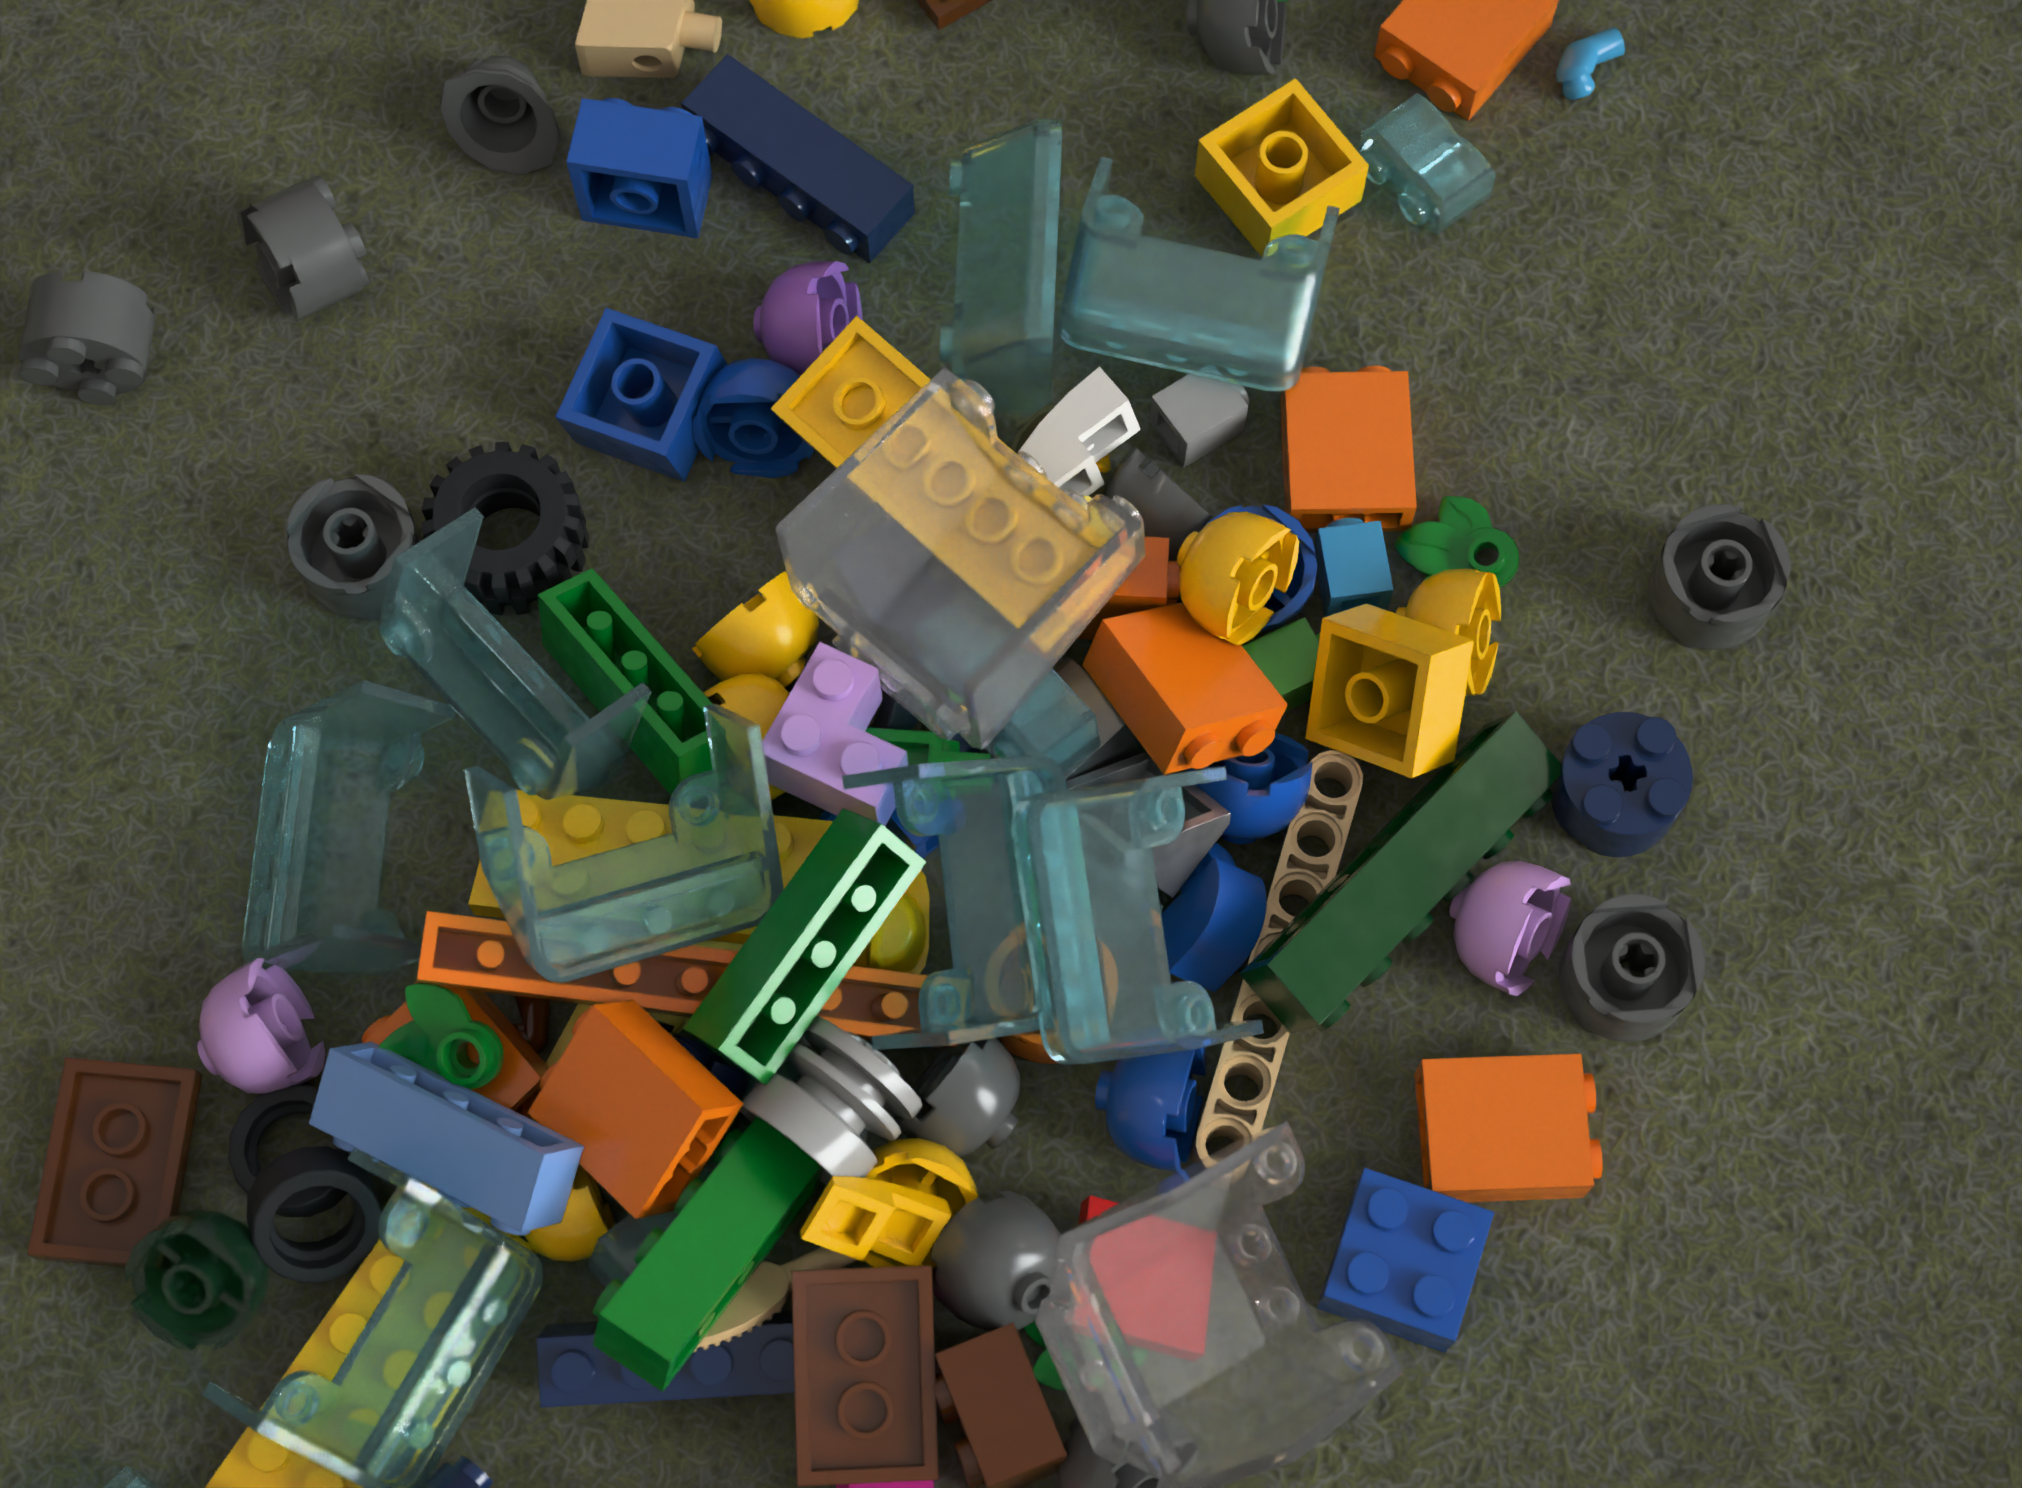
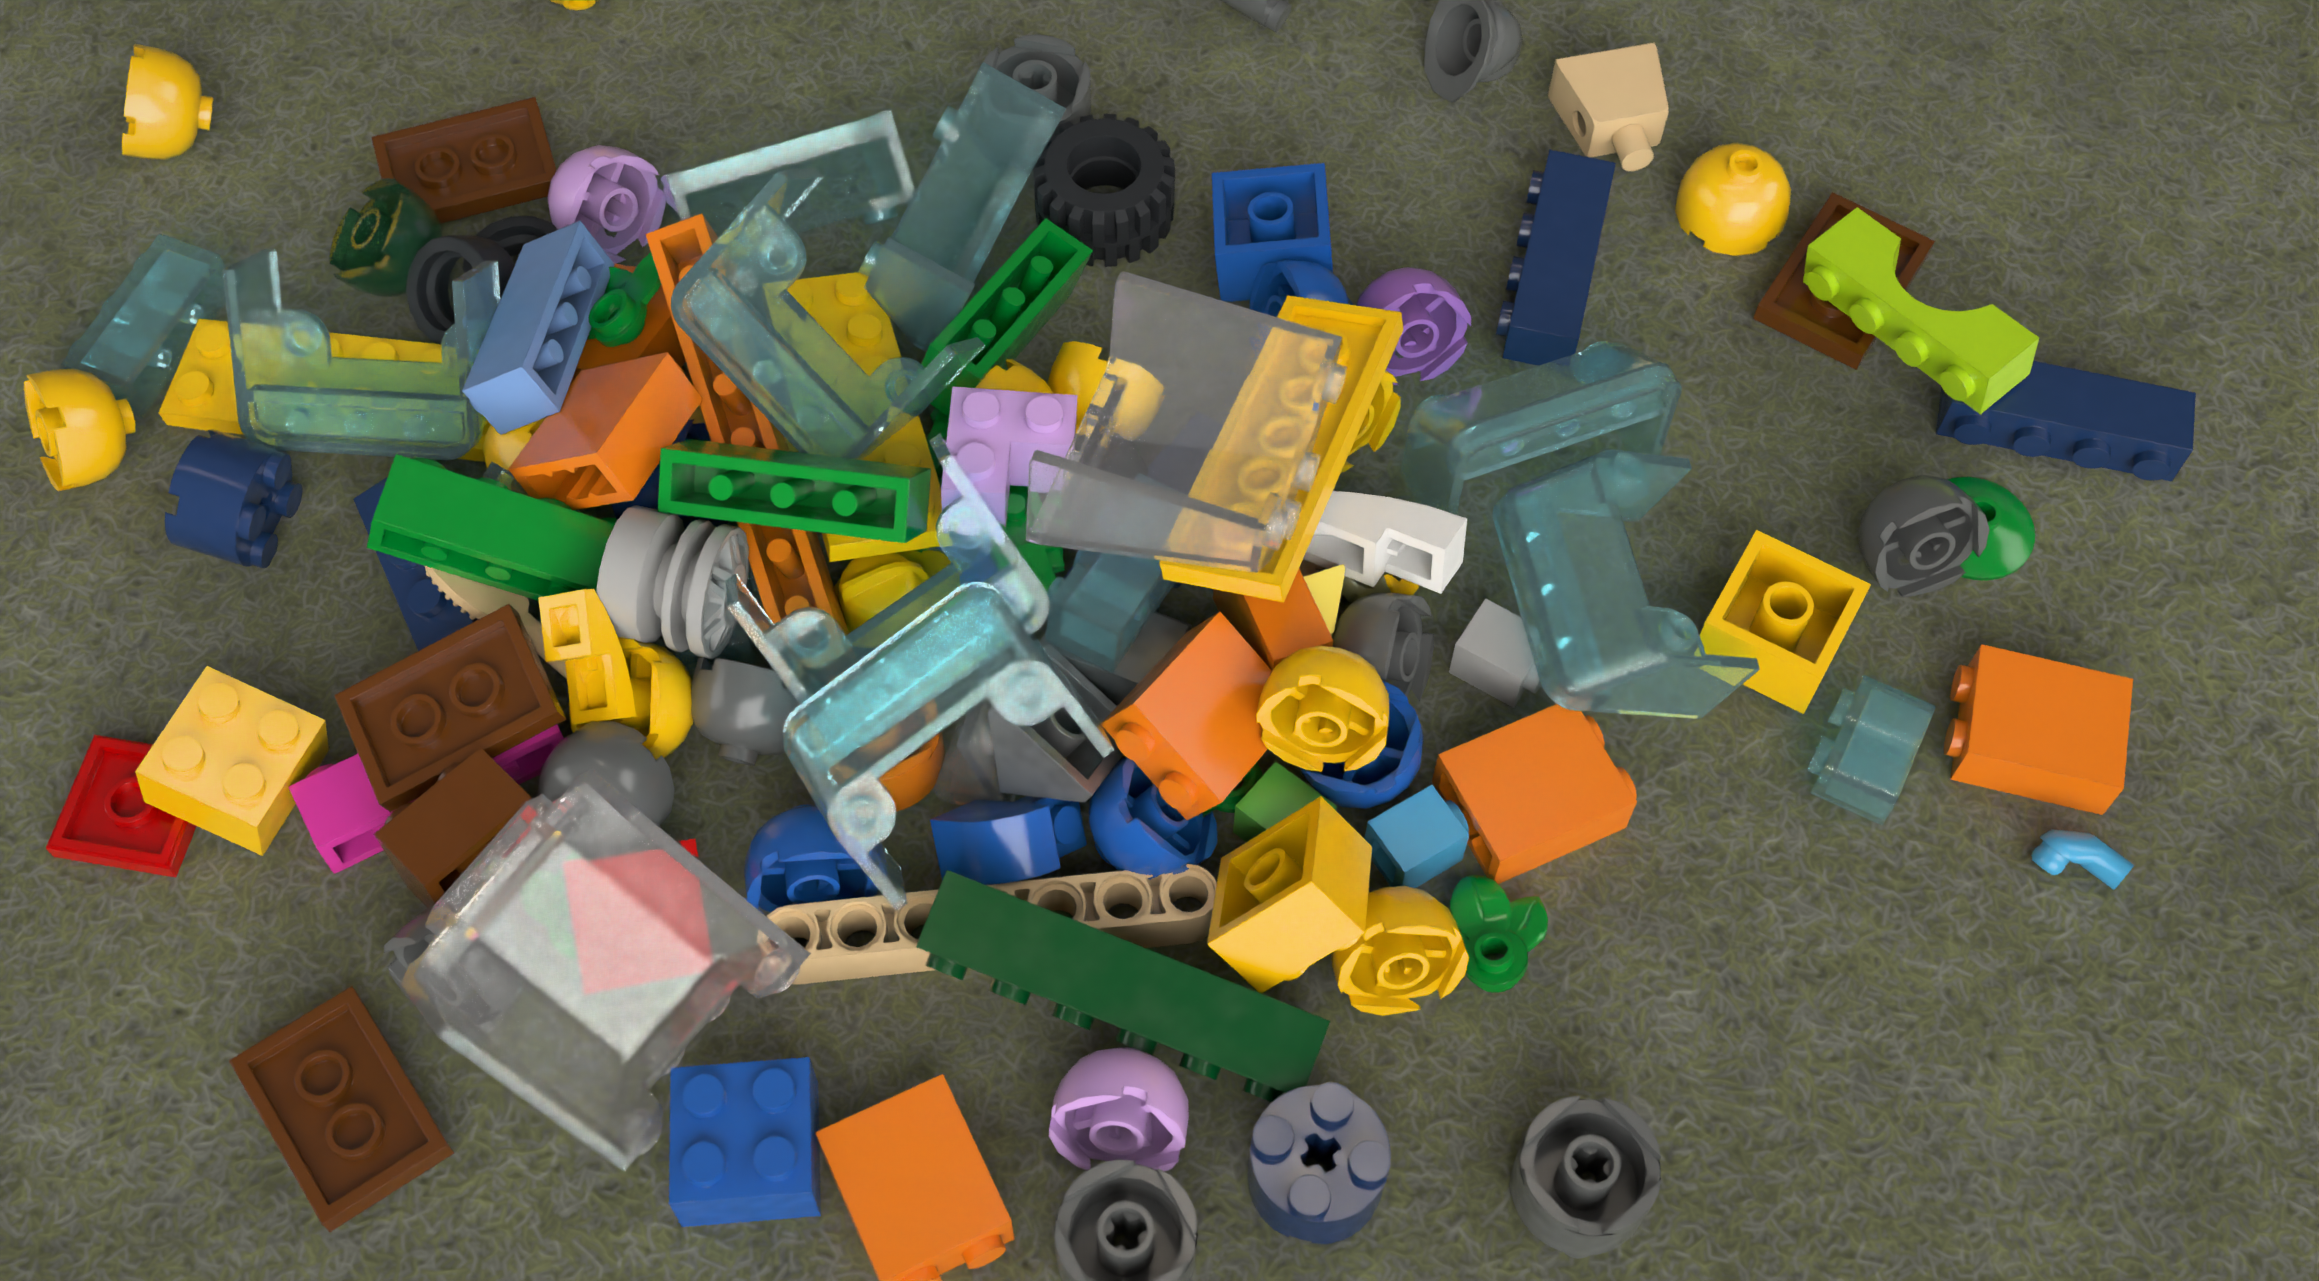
camera: 65 degrees right, 10 degrees down
(640, 167) = (1473, 144): blue brick -> none

